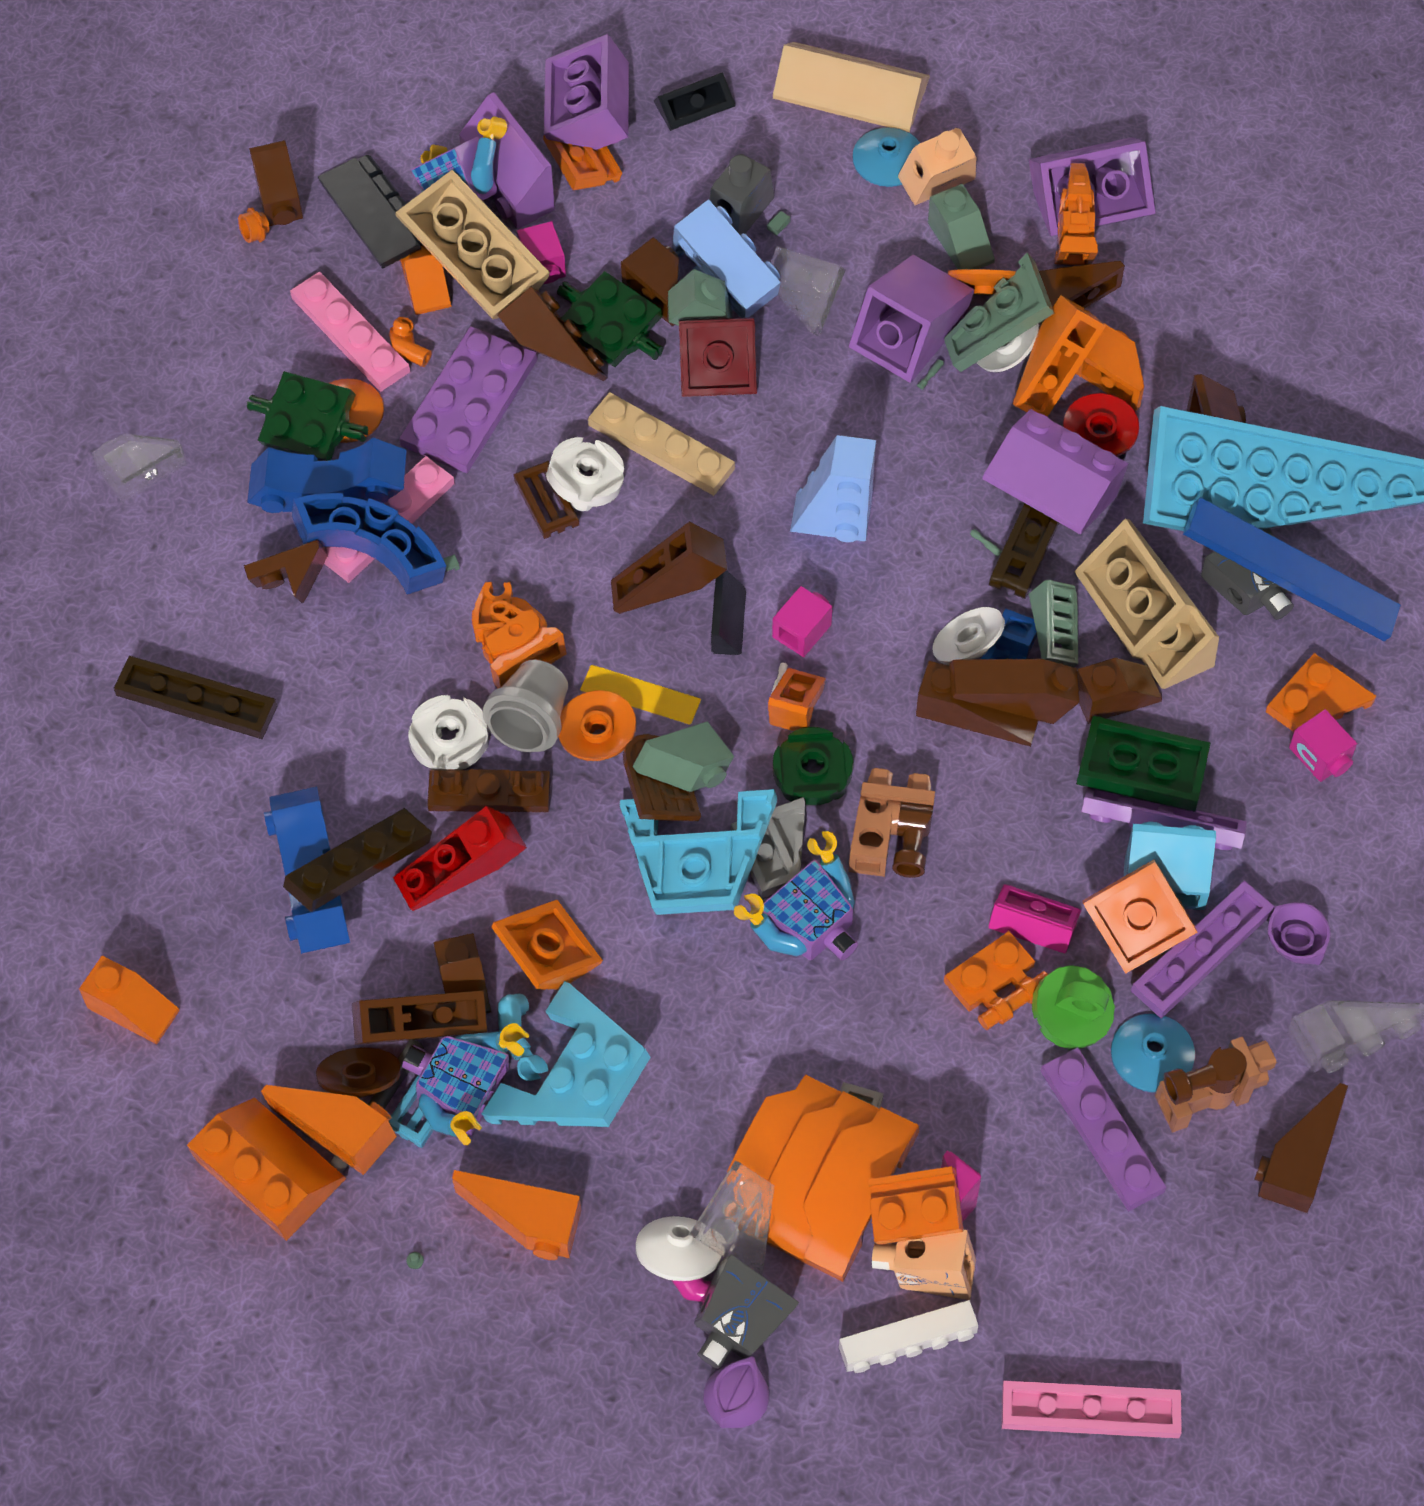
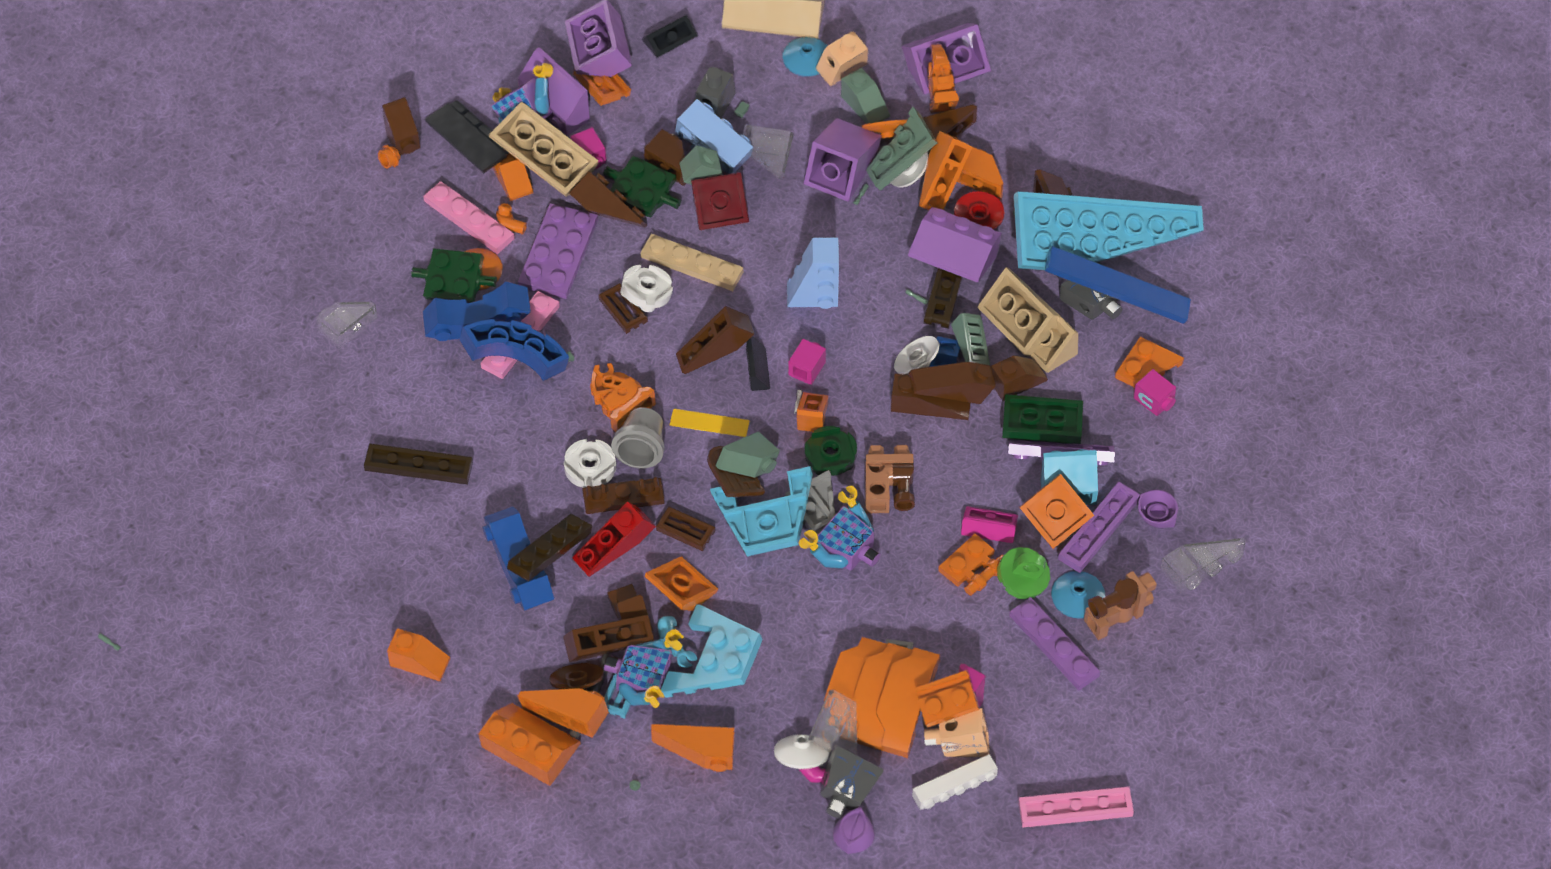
camera: 10 degrees left, 5 degrees down
(297, 564) = (469, 369): reddish brown slope -> none
(593, 712) = (686, 436): orange dish -> none
(598, 876) = (678, 534): none -> reddish brown tile
(1300, 1155) = (1179, 640): reddish brown slope -> none

